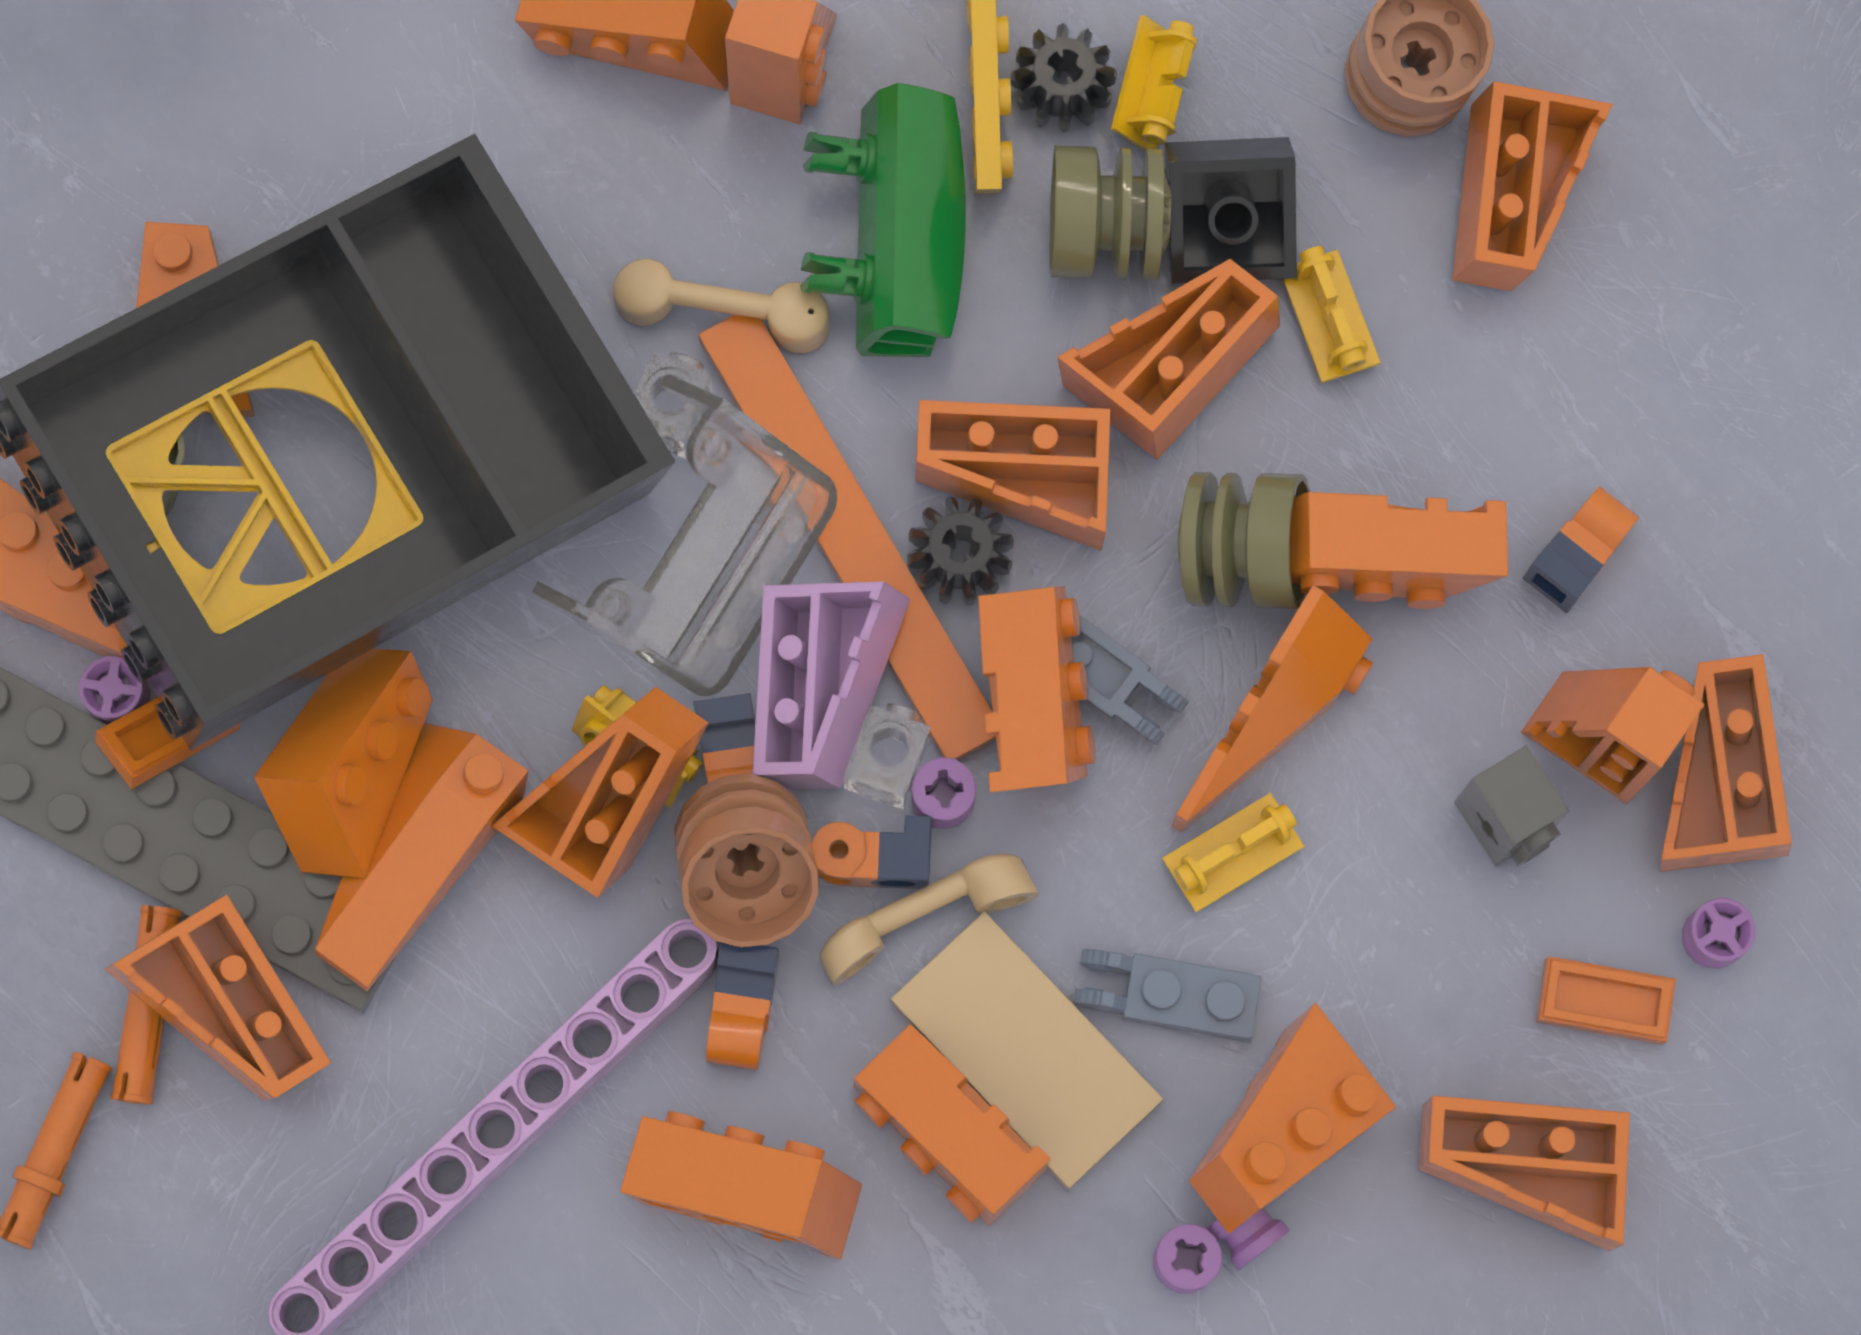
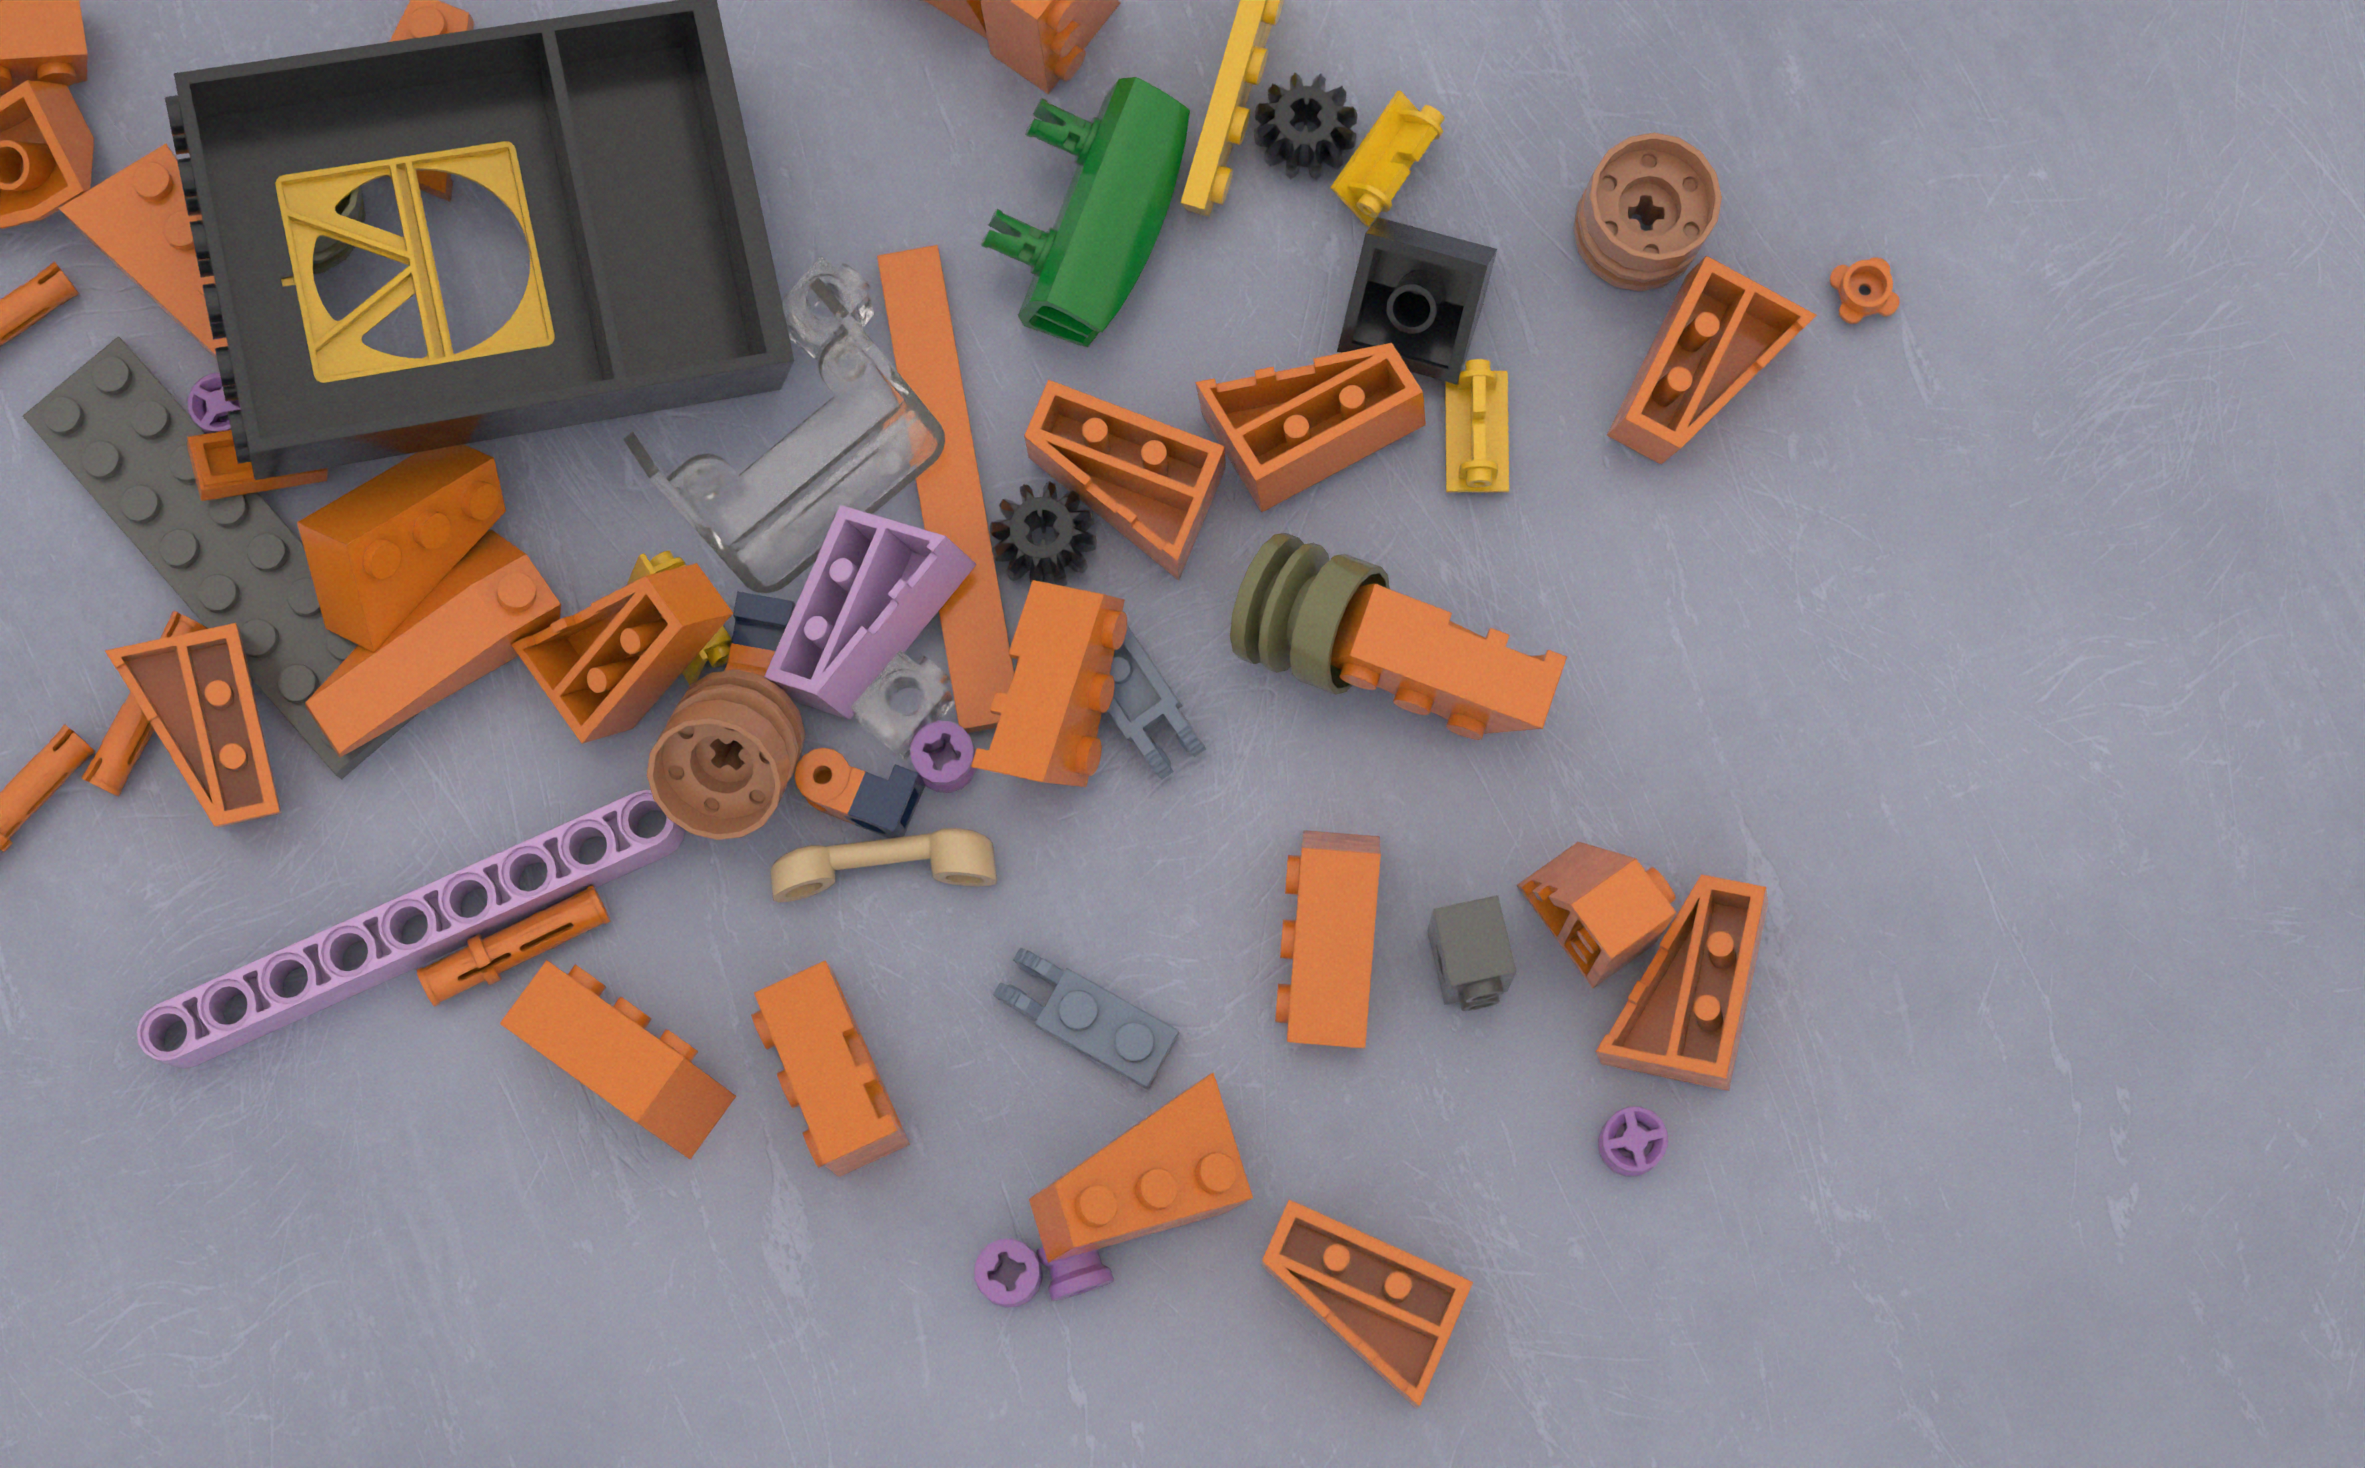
camera: 30 degrees right, 0 degrees up
(597, 1114) = (507, 948): none -> orange pin
(647, 293) = (845, 202): tan piece -> none
(741, 1004) = (682, 890): leg -> none
(1026, 1049) = (933, 1024): tan tile -> none
(1107, 212) = (1292, 262): olive wheel -> none
(1234, 851) = (1197, 905): yellow hinge -> none
(1299, 683) = (1320, 762): orange wedge -> none
(1376, 839) = (1330, 939): none -> orange wedge
(1580, 549) = (1635, 729): leg -> none
(1605, 1000) = (1502, 1168): orange tile -> none
(1645, 48) = (1870, 273): none -> orange plate

